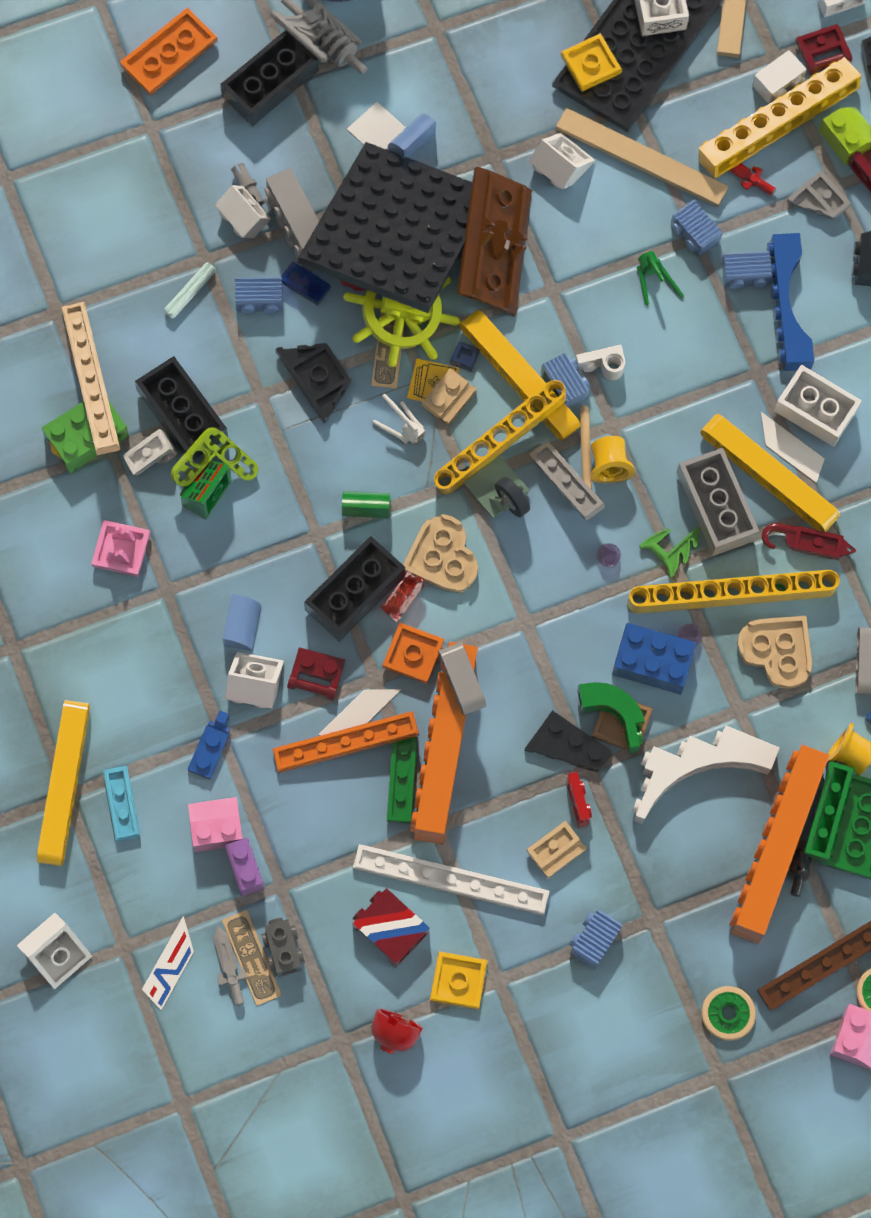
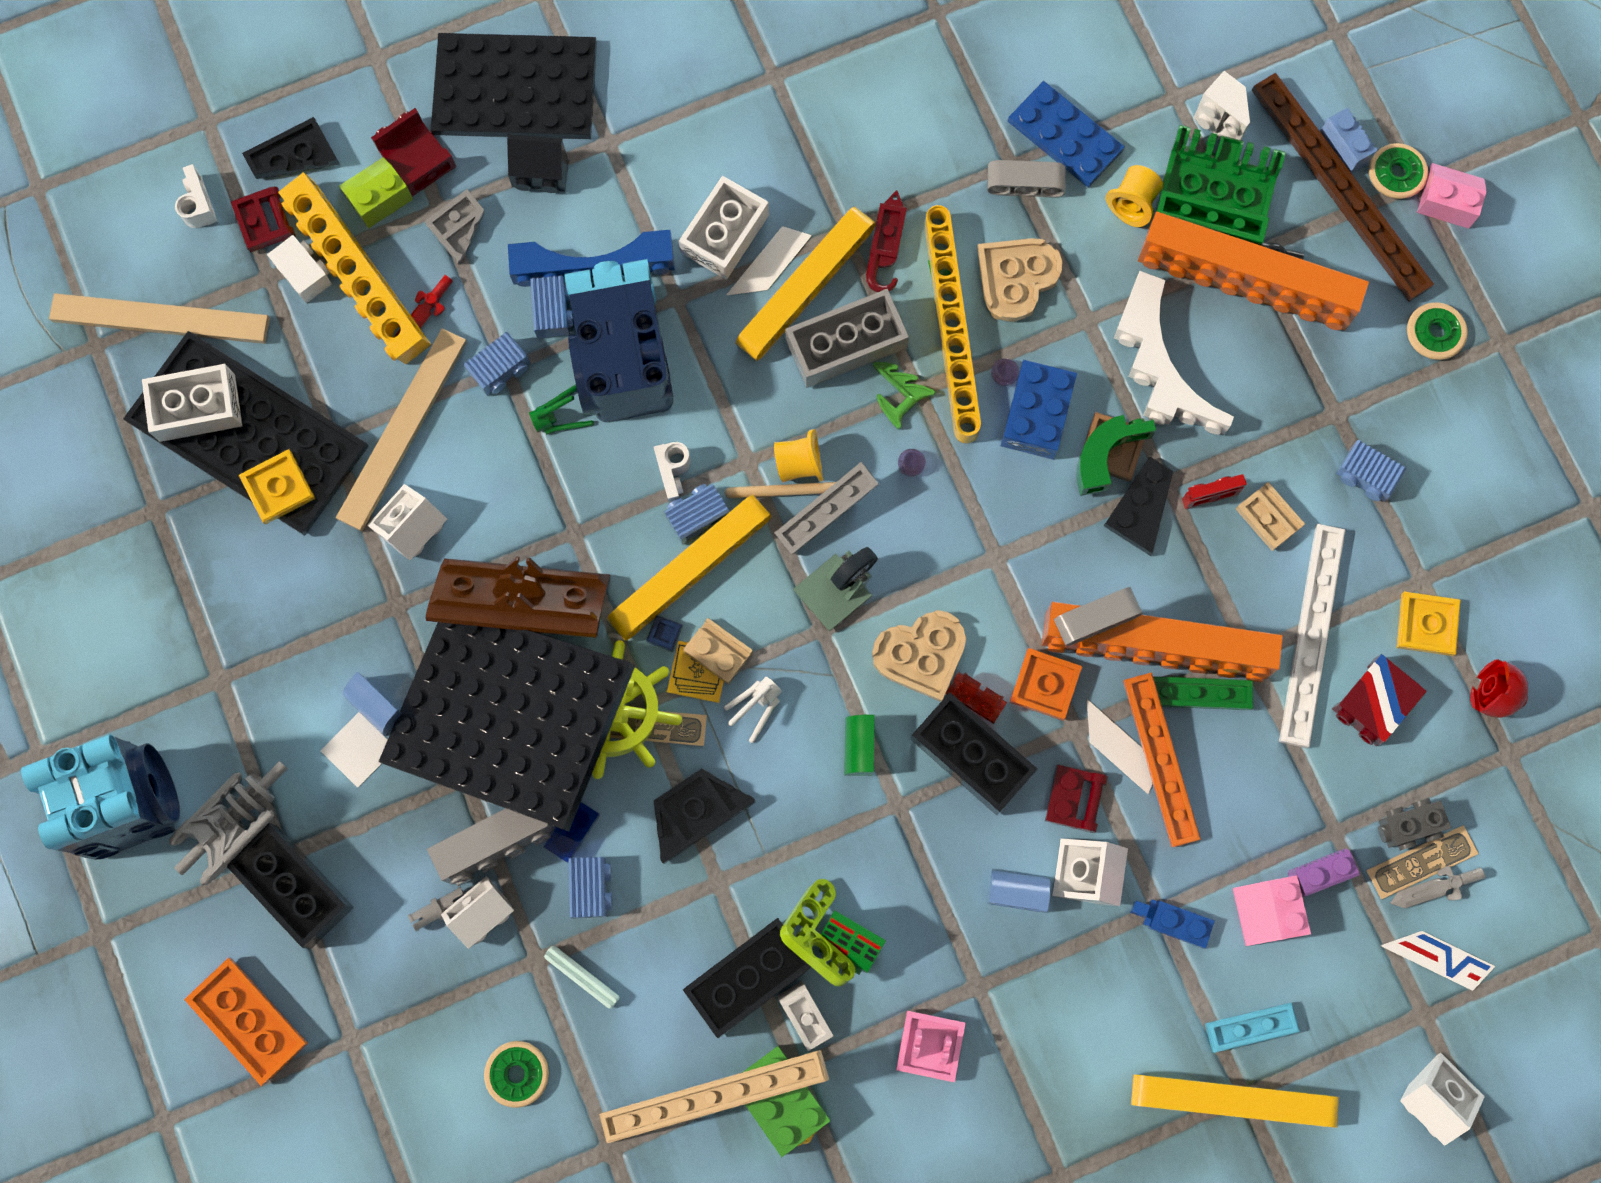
camera: 85 degrees left, 5 degrees up
(117, 256) = (534, 1067): none -> green wheel
(504, 426) = (779, 599): yellow beam -> none
(710, 315) = (617, 342): none -> dark blue piece

